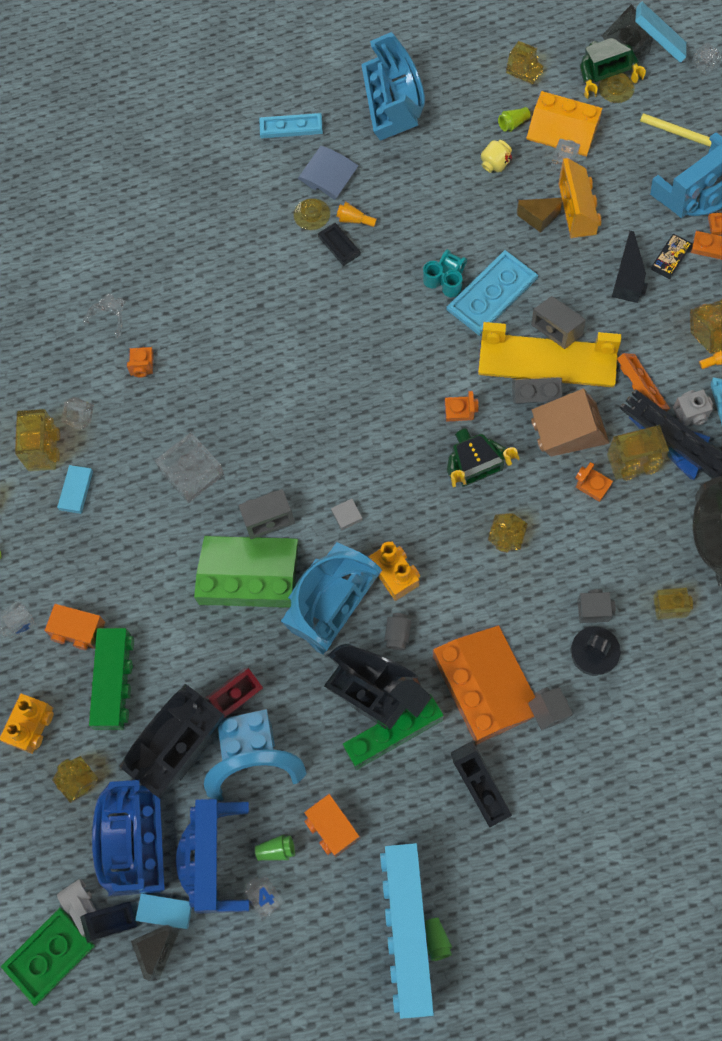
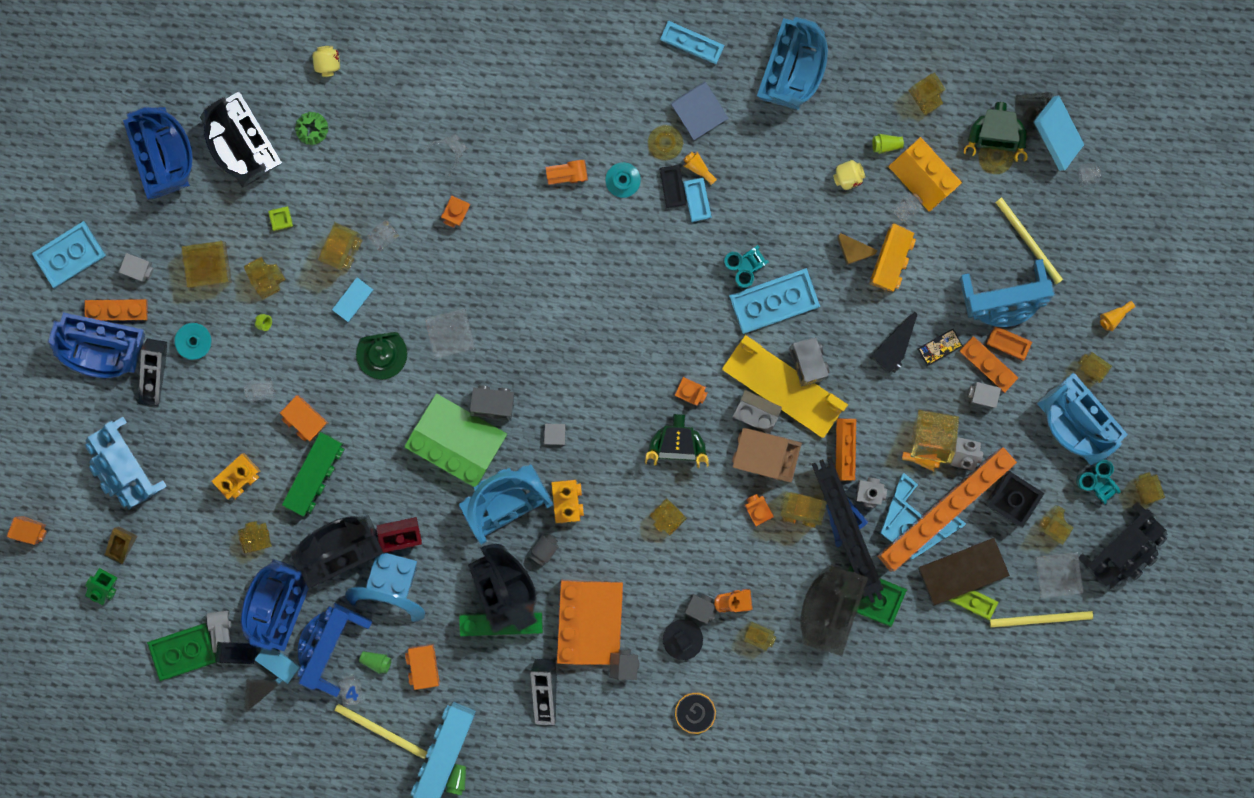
camera: 20 degrees right, 20 degrees up
(129, 527) = (381, 355): none -> dark green hat
(237, 273) = (569, 172): none -> orange piece
(290, 268) = (623, 189): none -> teal piece
(321, 929) = (381, 731): none -> light yellow piece
(369, 244) = (697, 199): none -> medium azure tile
(626, 581) = (734, 601): none -> orange piece
(655, 722) = (695, 713): none -> black tile

